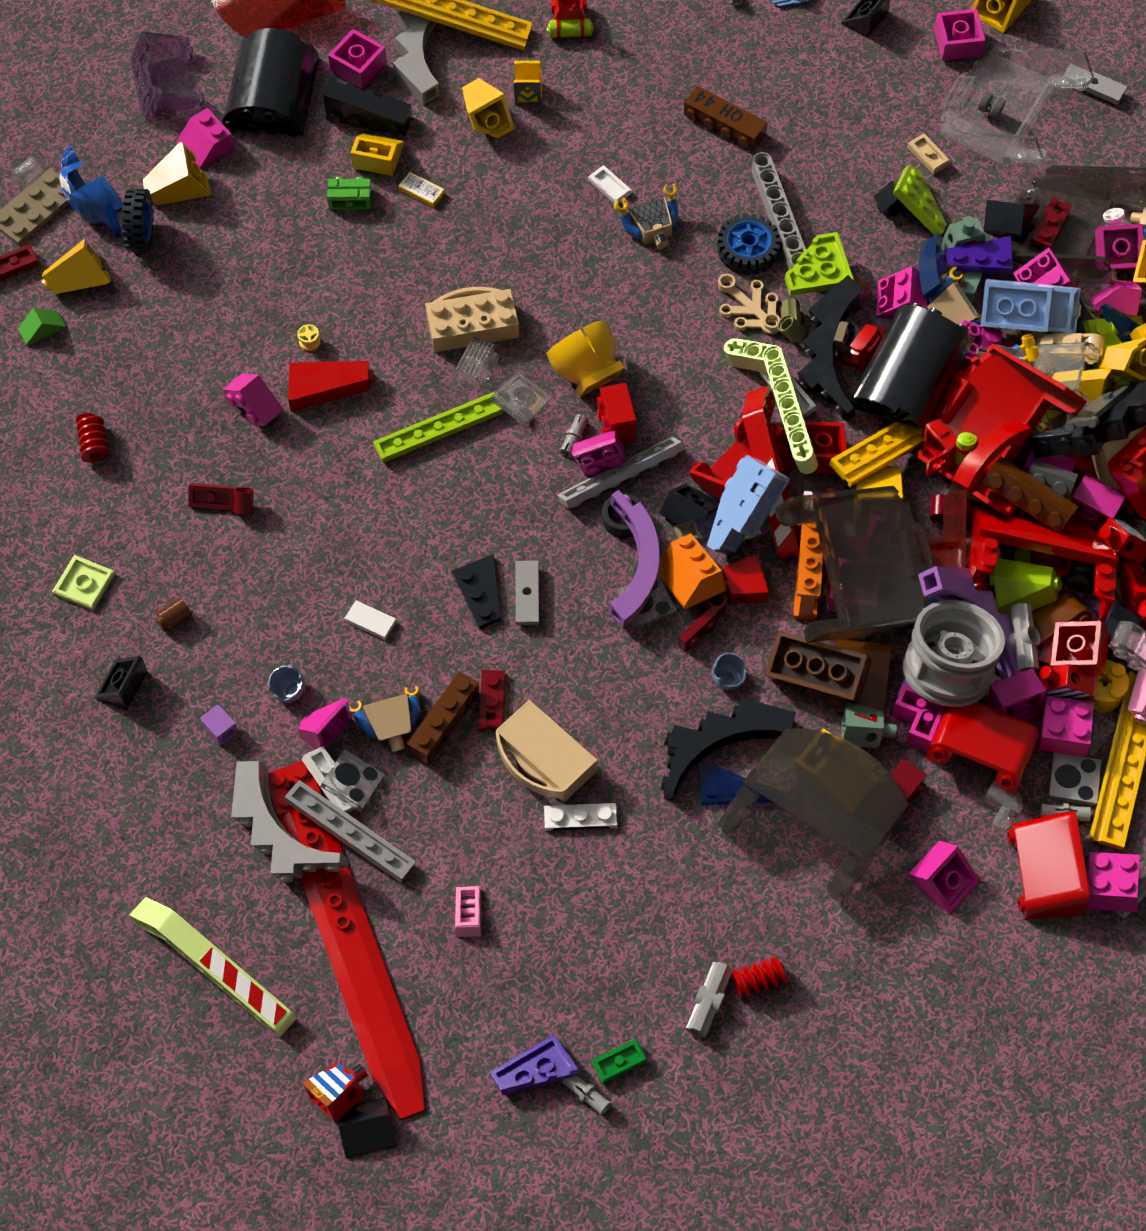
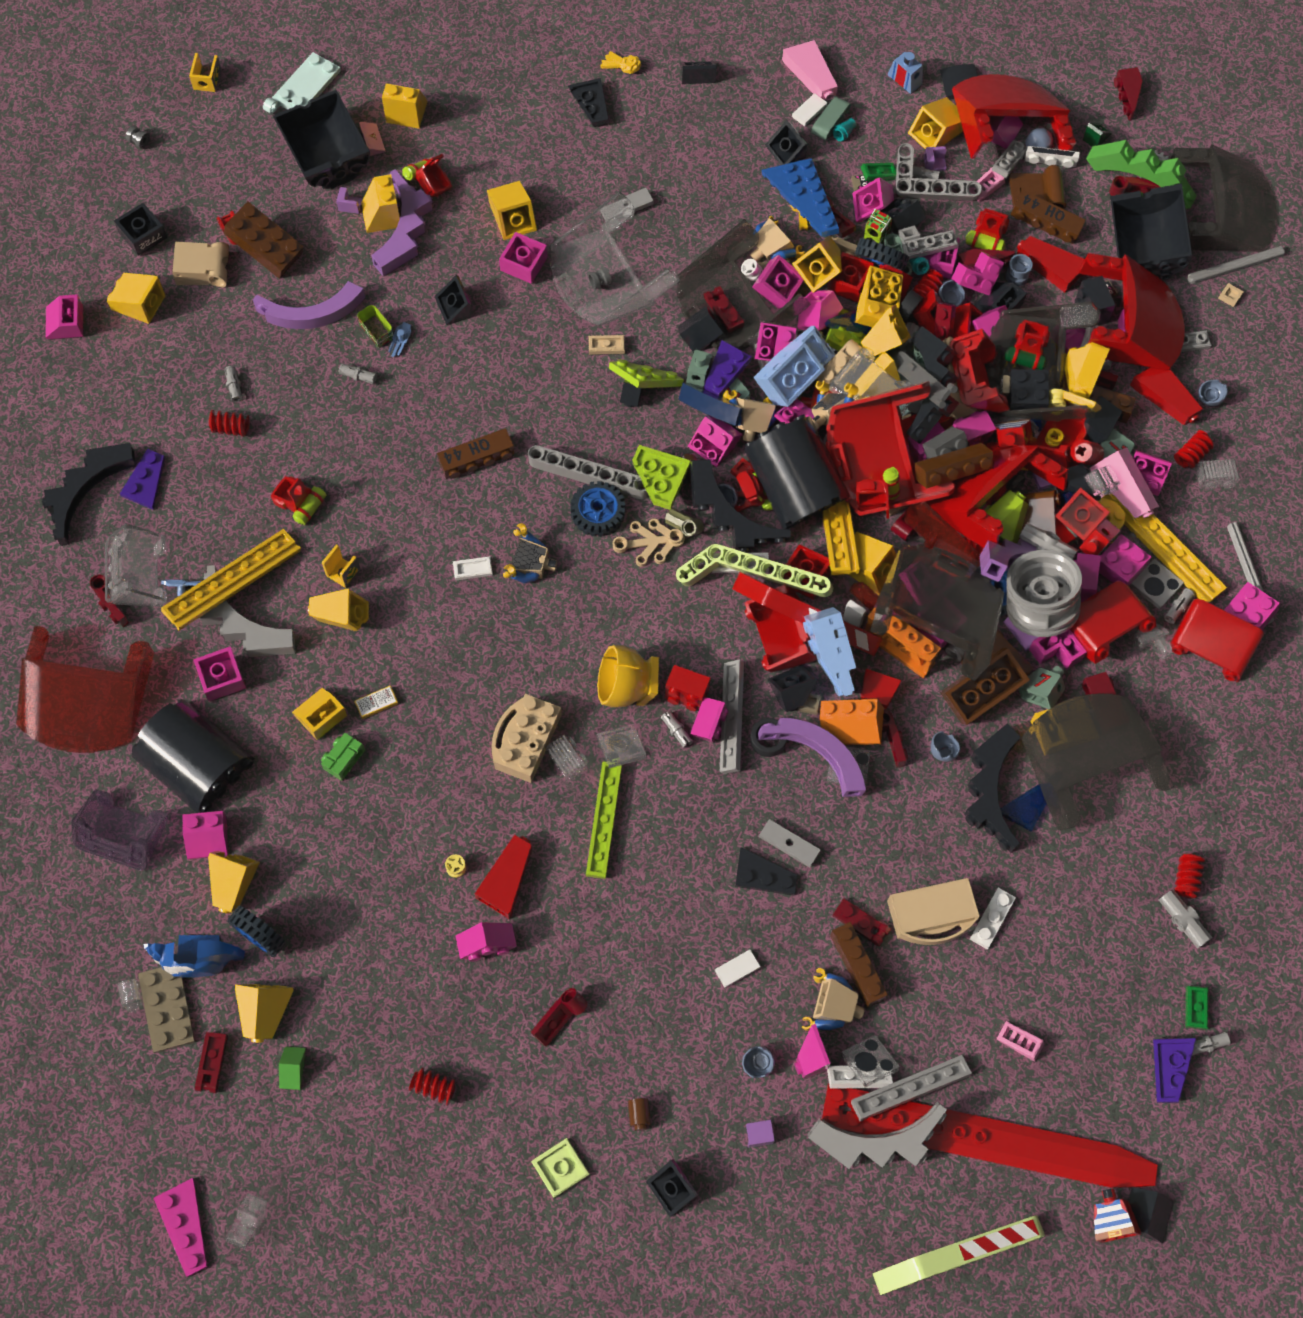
camera: 60 degrees left, 5 degrees up
(365, 109) = (274, 696): black wedge -> none
(841, 336) = (729, 496): dark tan tile -> none
(944, 876) = (1181, 710): dark pink slope -> none
(986, 450) = (908, 467): red slope -> none

